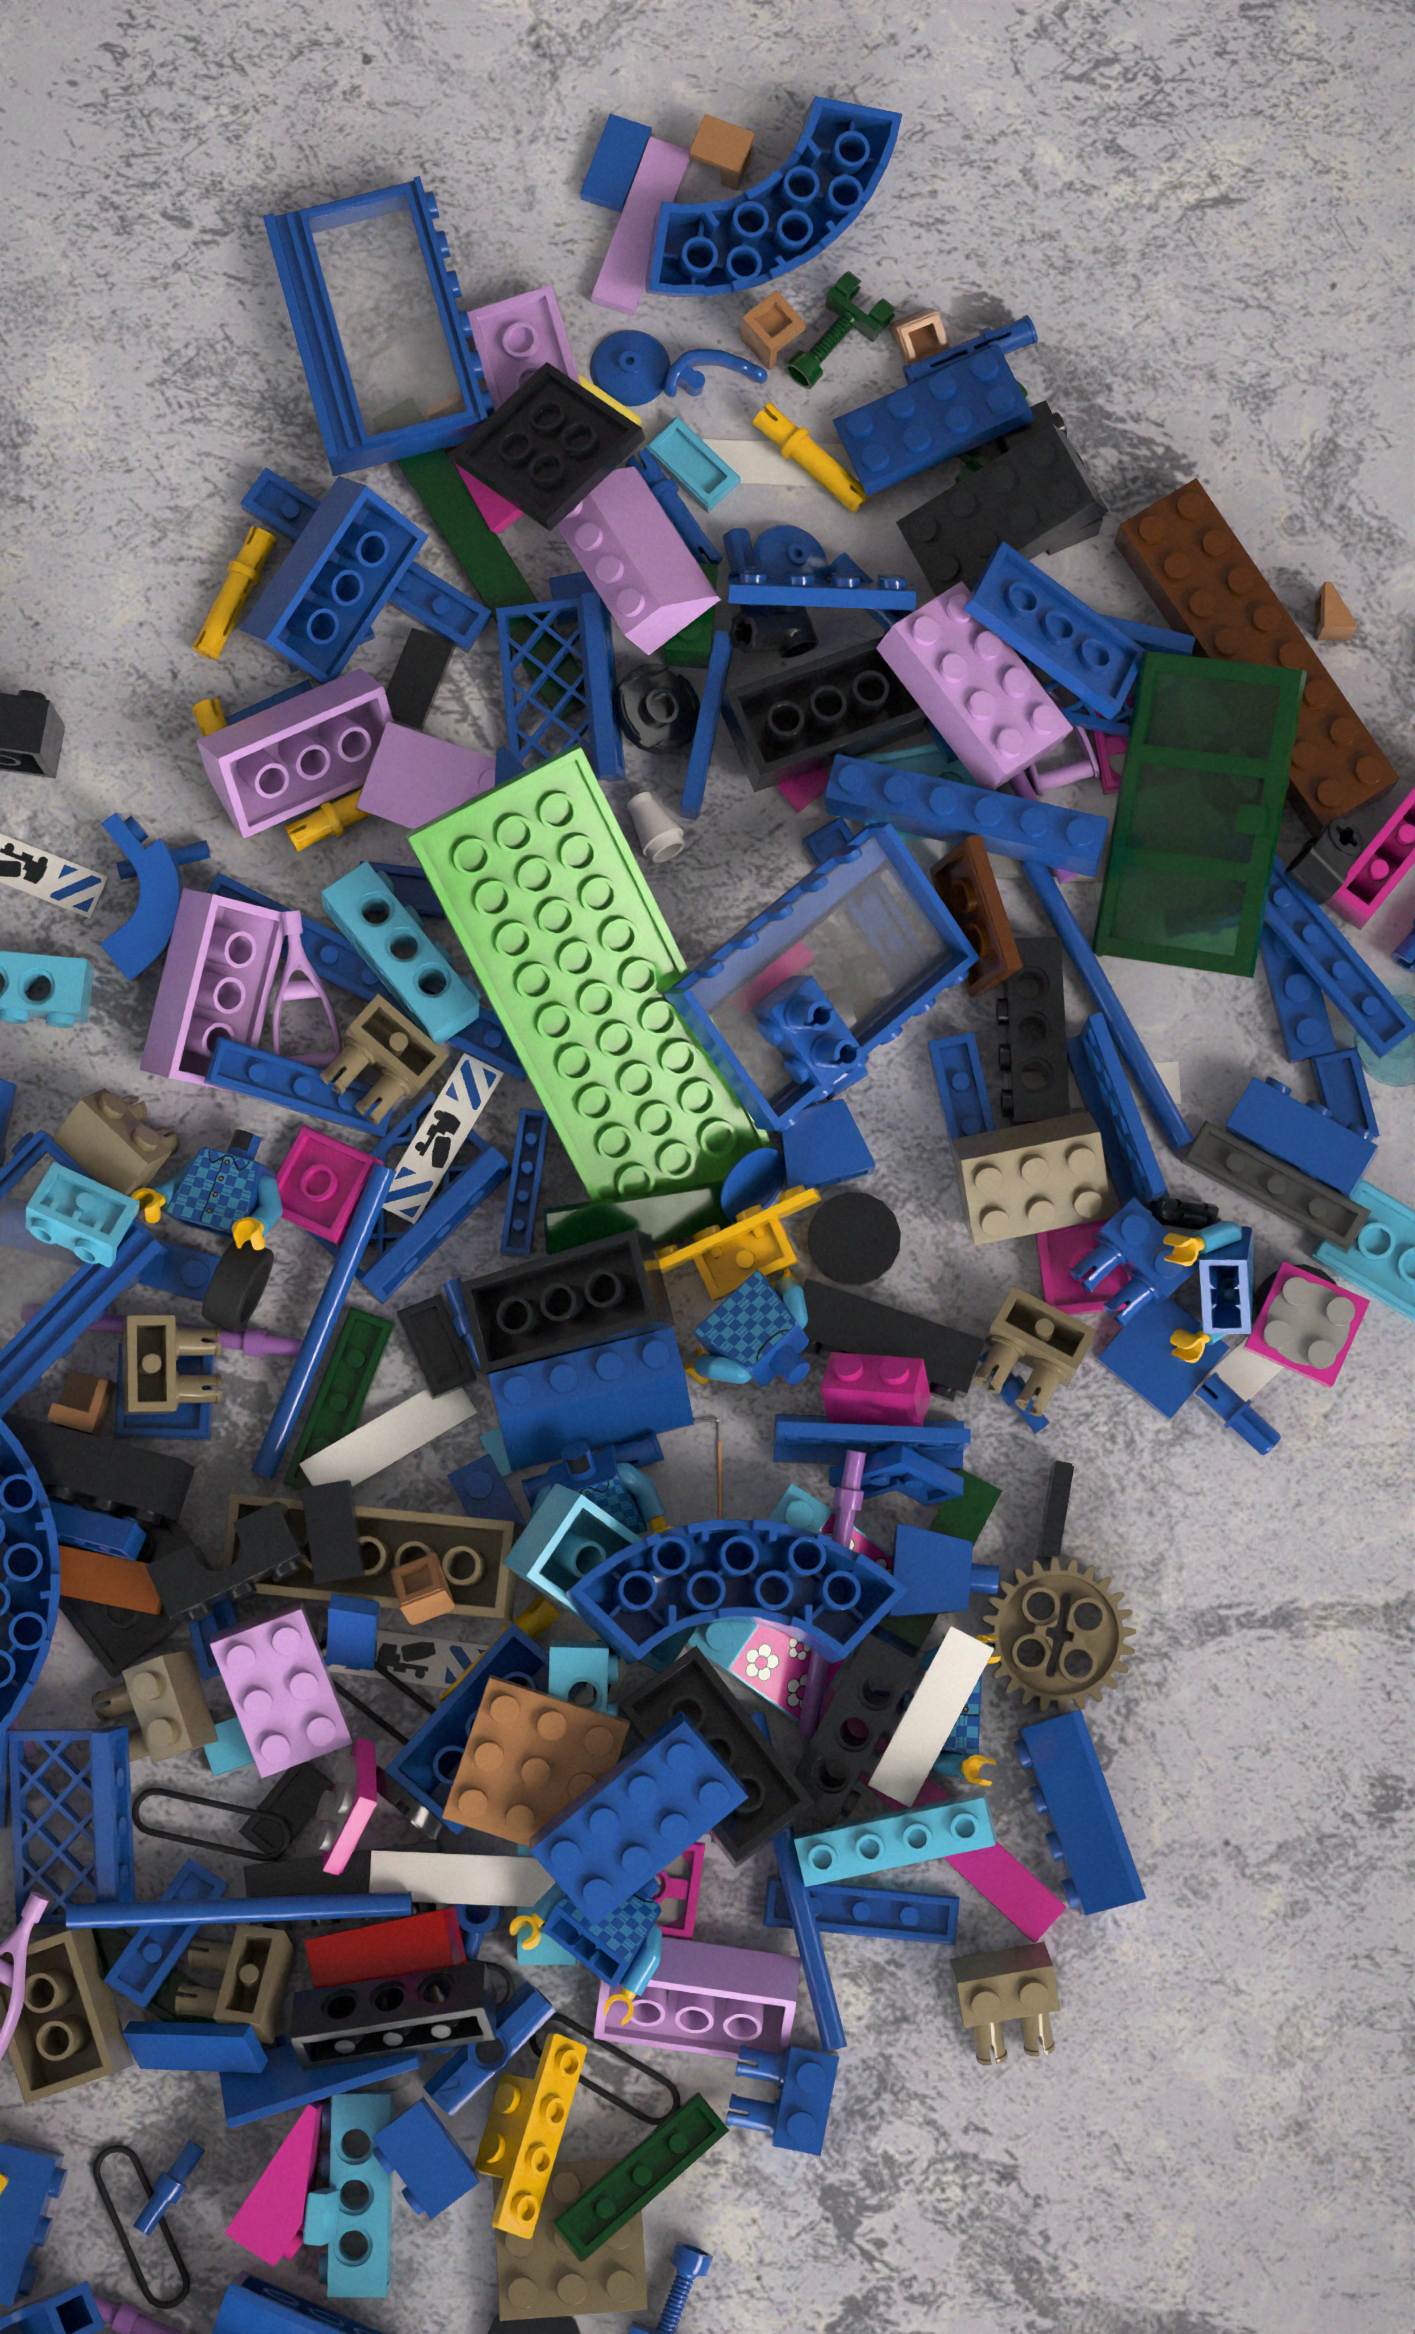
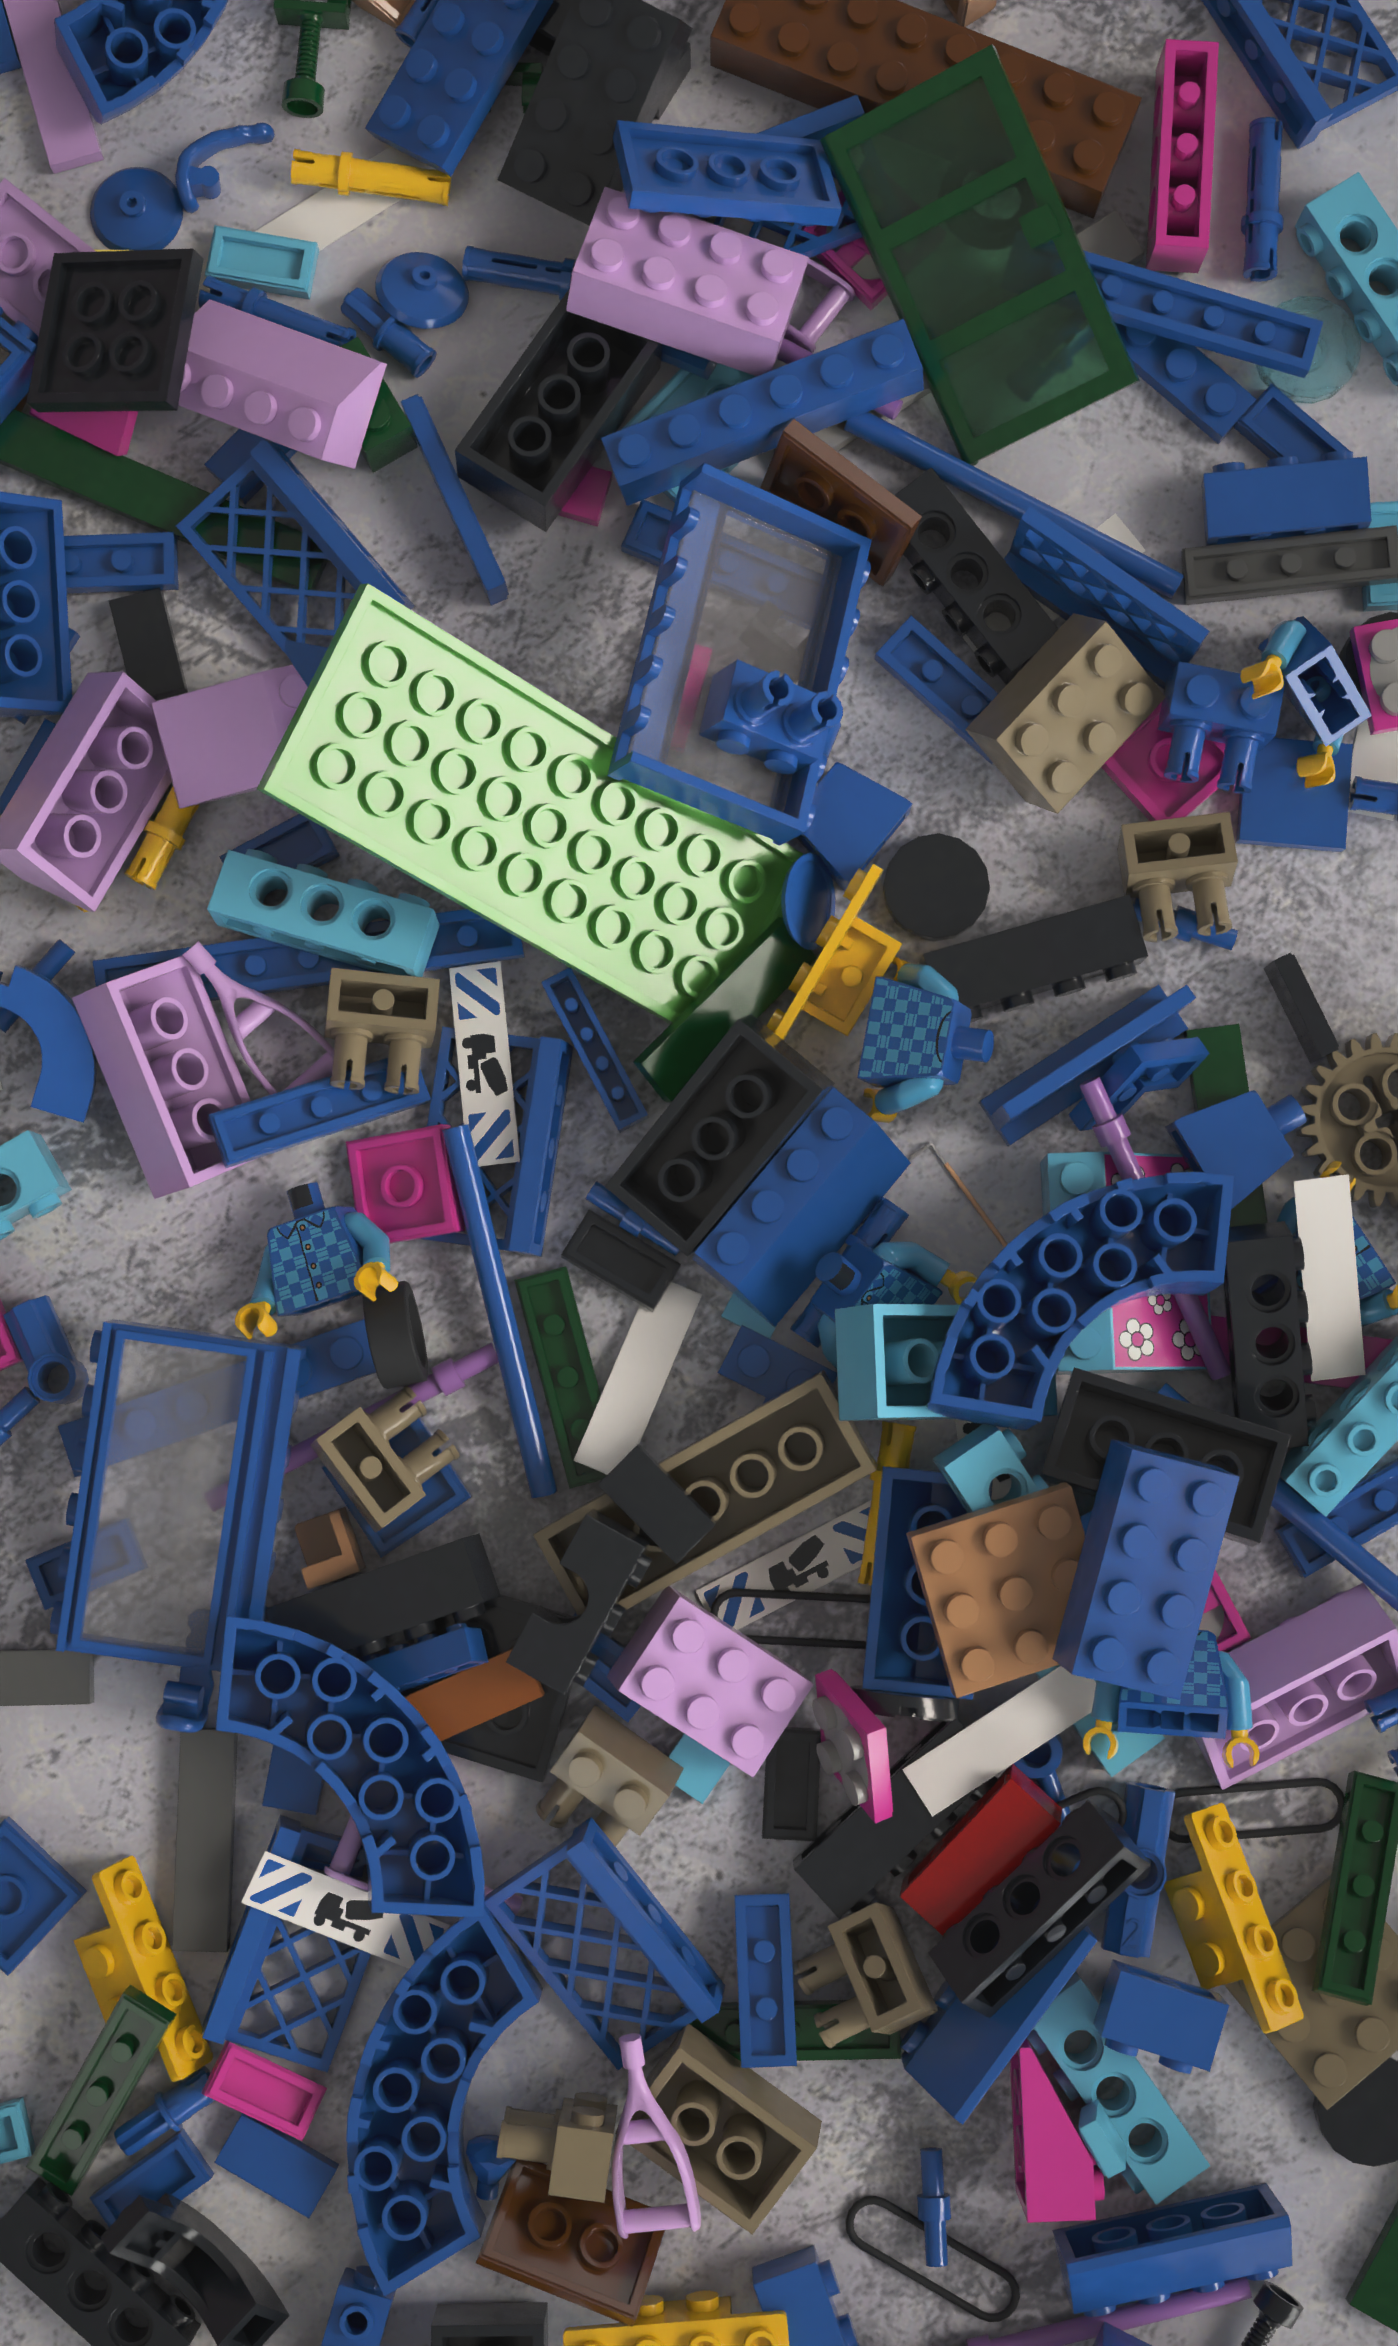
camera: 30 degrees left, 5 degrees up
(80, 1215) = (201, 1376): medium azure bracket -> none
(112, 1142) = (183, 1286): dark tan brick -> none
(195, 2046) = (870, 2066): blue tile -> none
(205, 1844) = (740, 1871): black piece -> none
(239, 1909) = (821, 1914): blue piece -> none
(352, 1632) = (739, 1581): blue tile -> none
(422, 1589) = (780, 1497): medium nougat slope -> none
(656, 709) = (397, 516): black tile -> none
(656, 830) = (479, 629): white cone -> none
(770, 328) = (244, 77): medium nougat panel -> none
(774, 629) = (457, 361): black piece -> none
(842, 591) = (493, 278): blue plate -> none
(875, 1390) = (1063, 1013): dark pink brick -> none
(1184, 1213) = (1229, 647): black axle -> none
(1325, 860) = (1130, 223): black piece -> none

